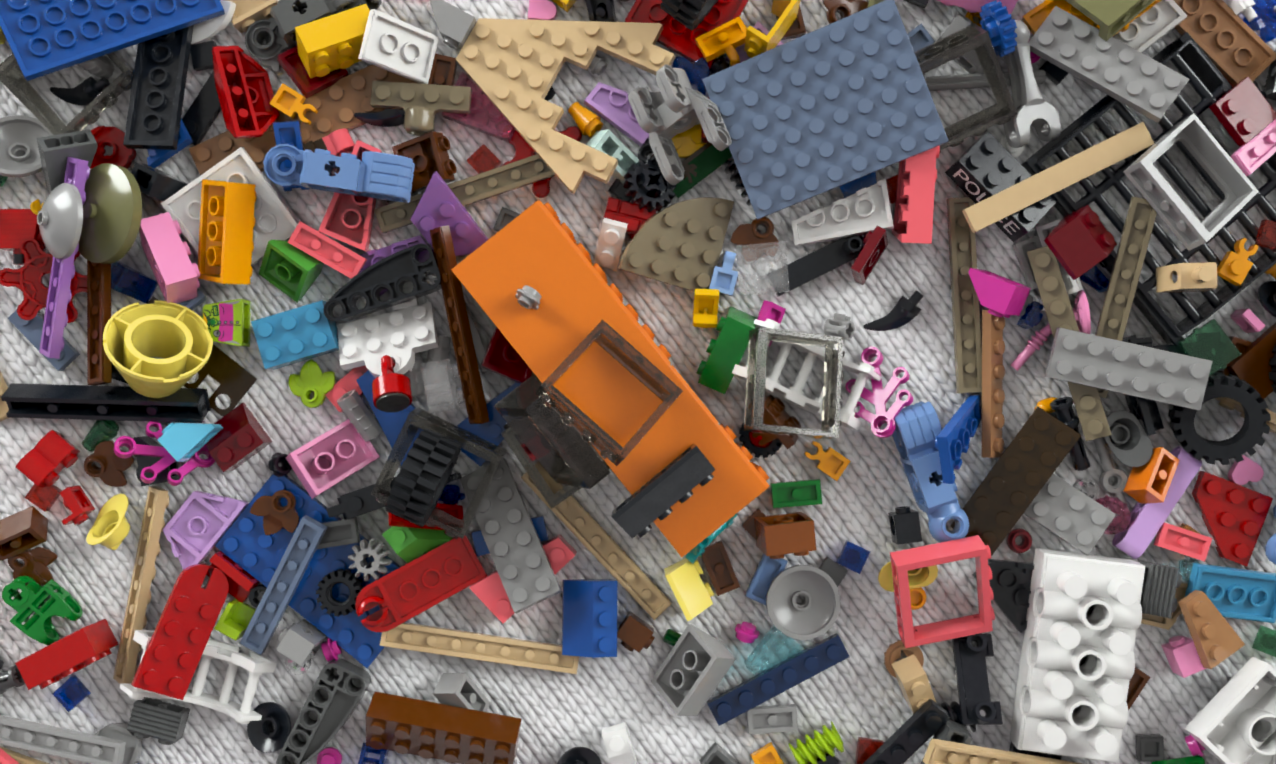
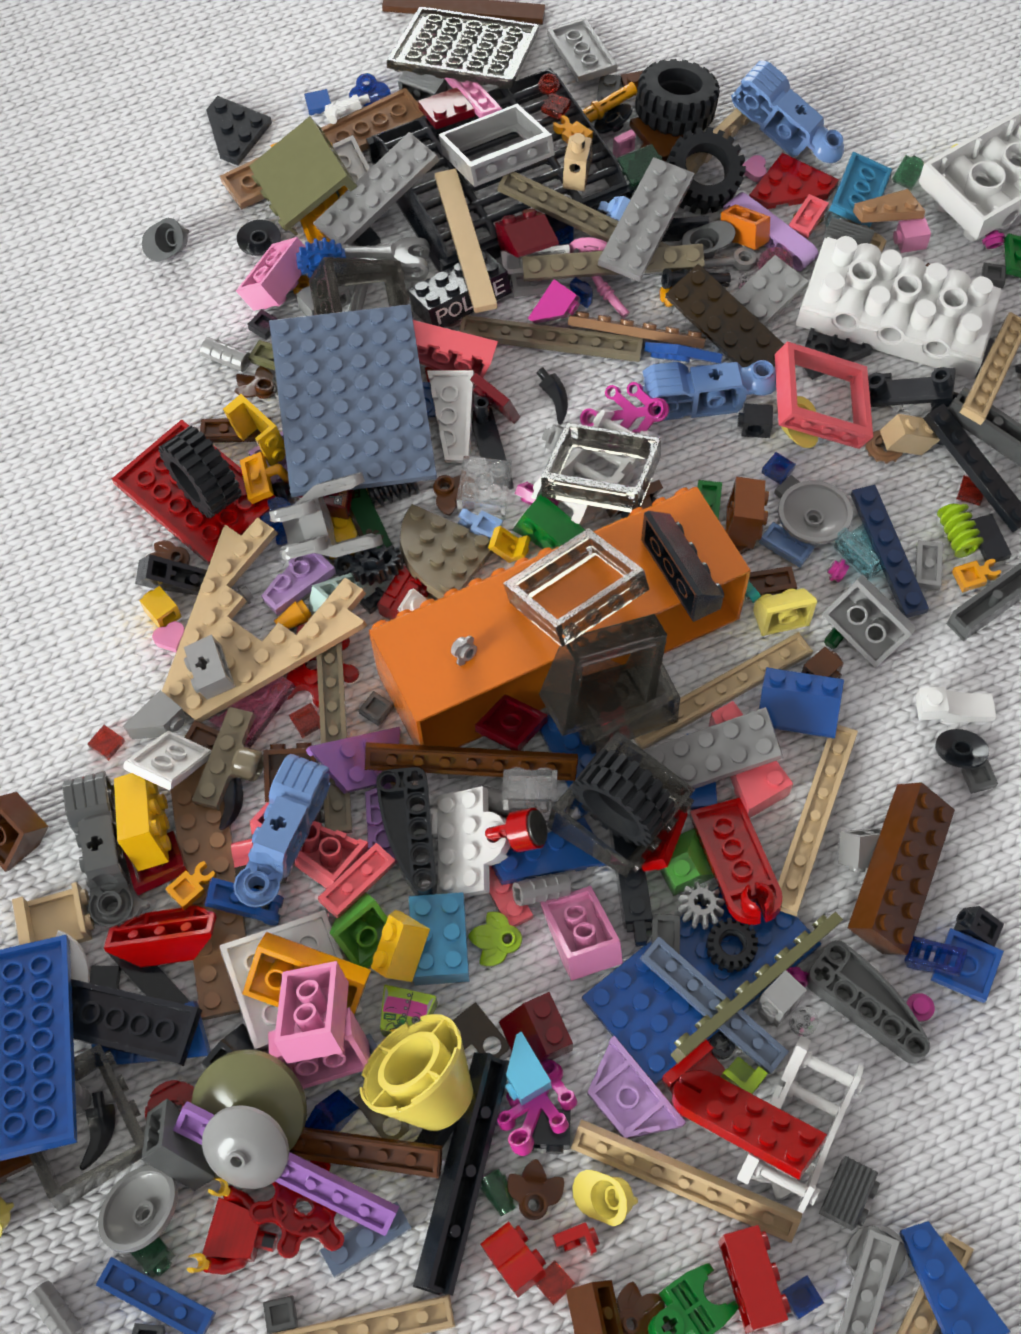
camera: 75 degrees left, 25 degrees down
(175, 246) = (311, 1012): none -> bright pink brick
(262, 733) = (889, 1056): black dish -> none
(270, 304) = (400, 947): none -> yellow slope
(273, 464) = (577, 989): black plate -> none
(275, 514) = (633, 1001): reddish brown plate -> none
(295, 618) = (749, 991): none -> olive plate
(494, 66) = (209, 667): none -> light grey brick
(829, 462) = (681, 470): light orange plate -> none
(1024, 545) = (787, 332): dark red plate -> none
(1139, 332) = (615, 207): none -> light blue plate

